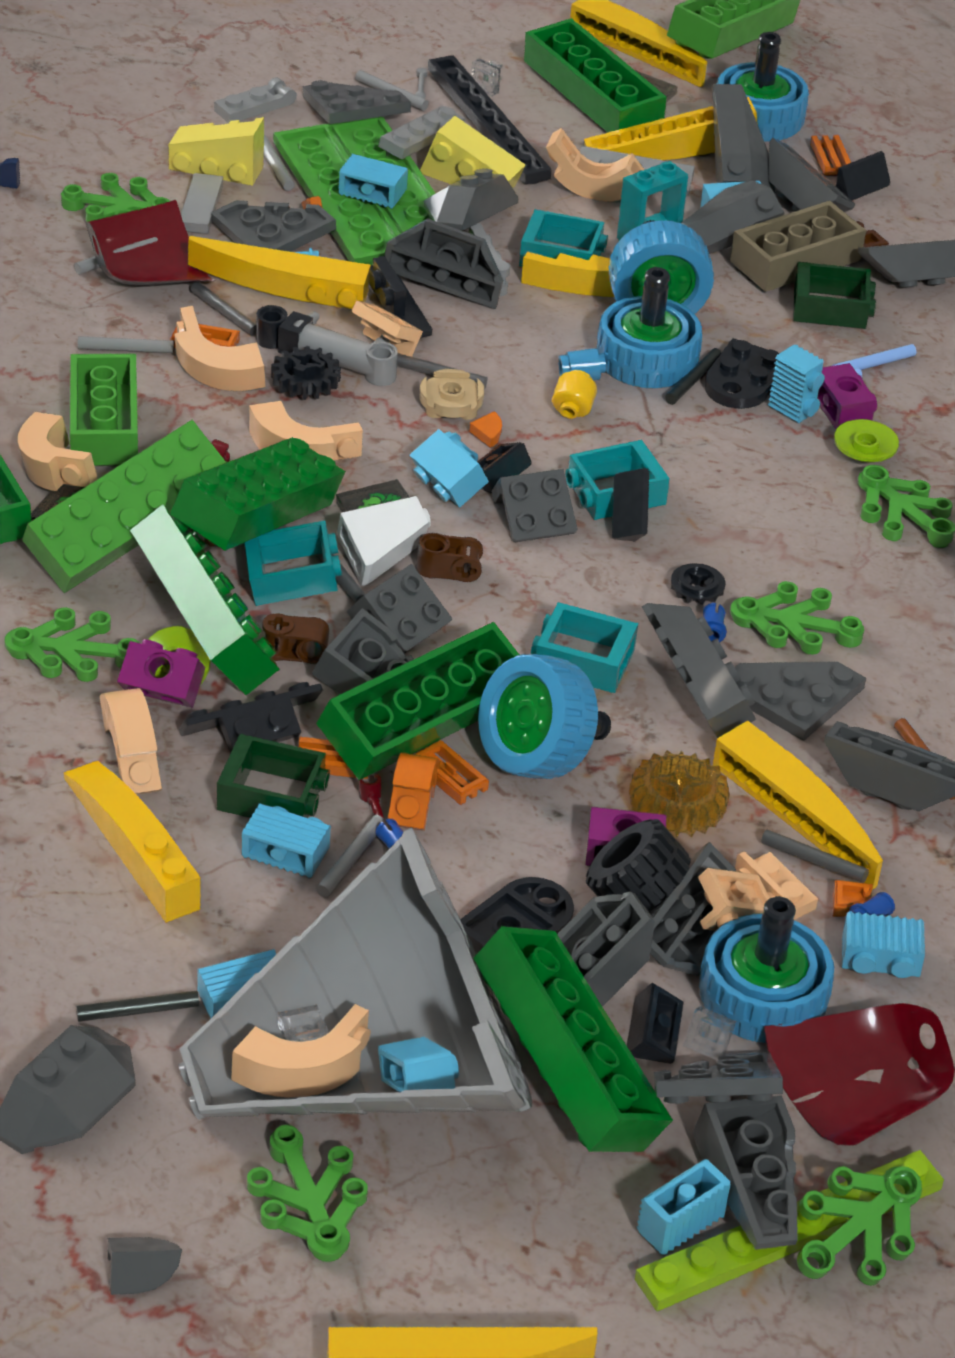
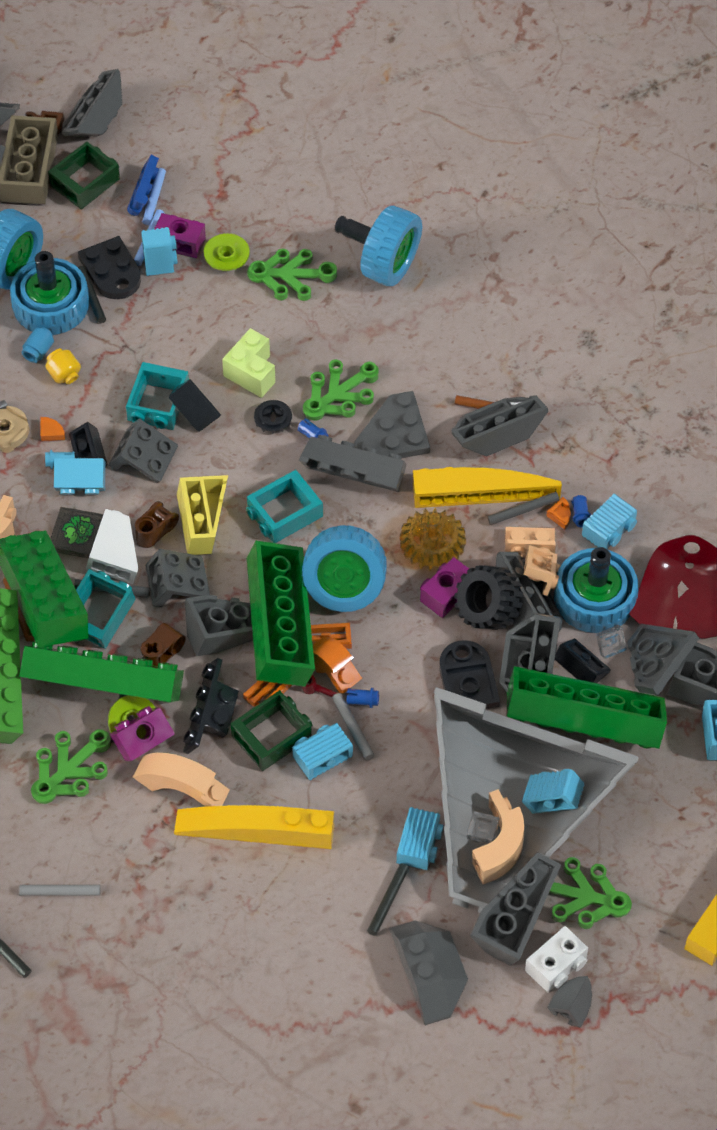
camera: 50 degrees left, 15 degrees up
(186, 1210) = (557, 959): none -> white brick
(199, 1118) = (512, 914): none -> dark grey wedge
(502, 581) = (200, 509): none -> light yellow wedge
(742, 523) = (248, 365): none -> yellowish green brick
(873, 339) = (143, 186): none -> blue plate

